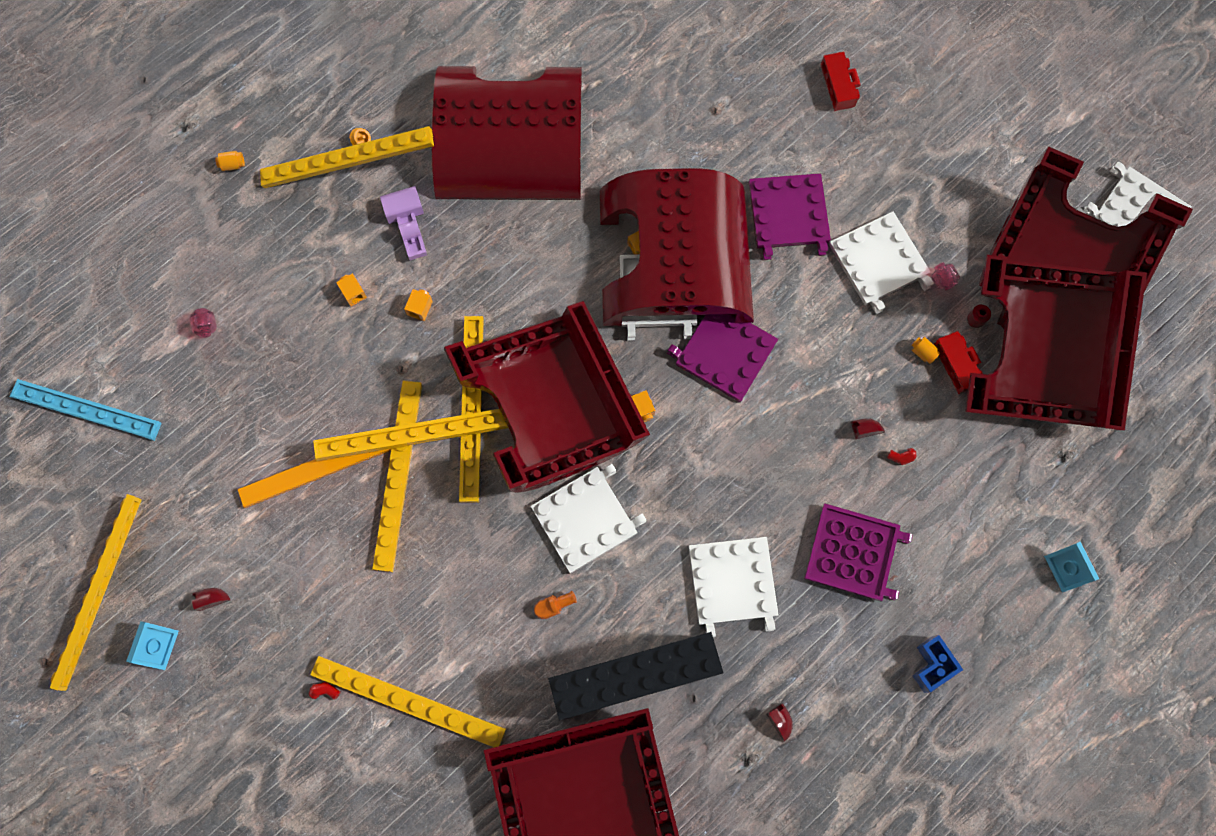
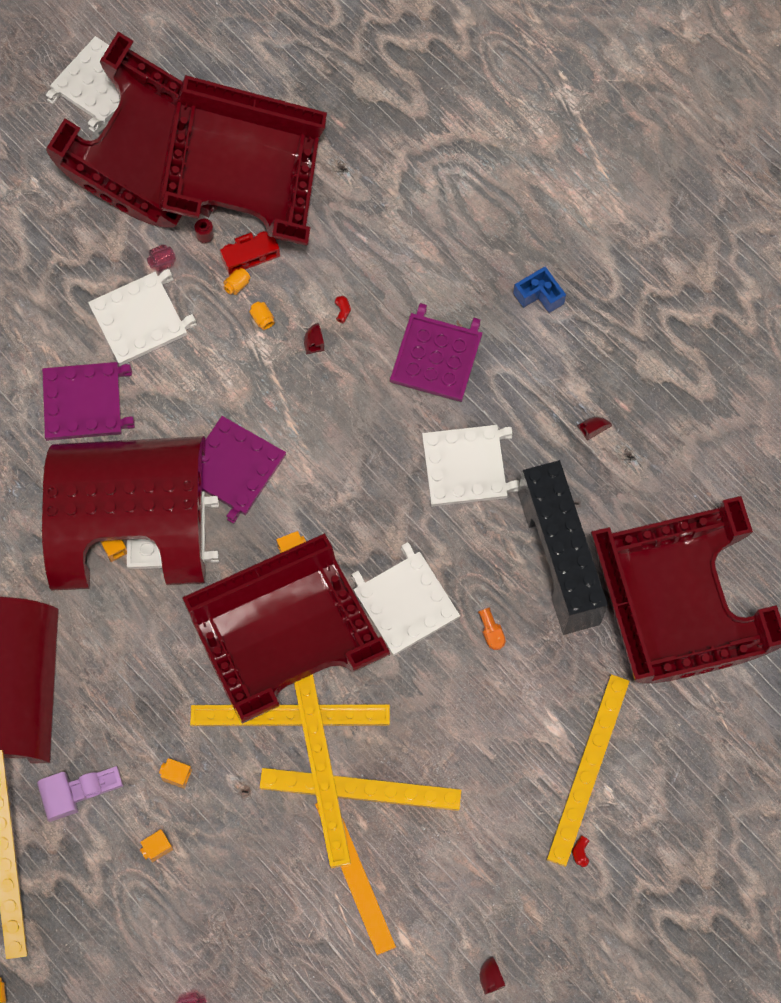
camera: 90 degrees left, 5 degrees down
(889, 375) = (262, 315): none -> light orange brick
(1071, 567) = (449, 171): medium azure tile -> none

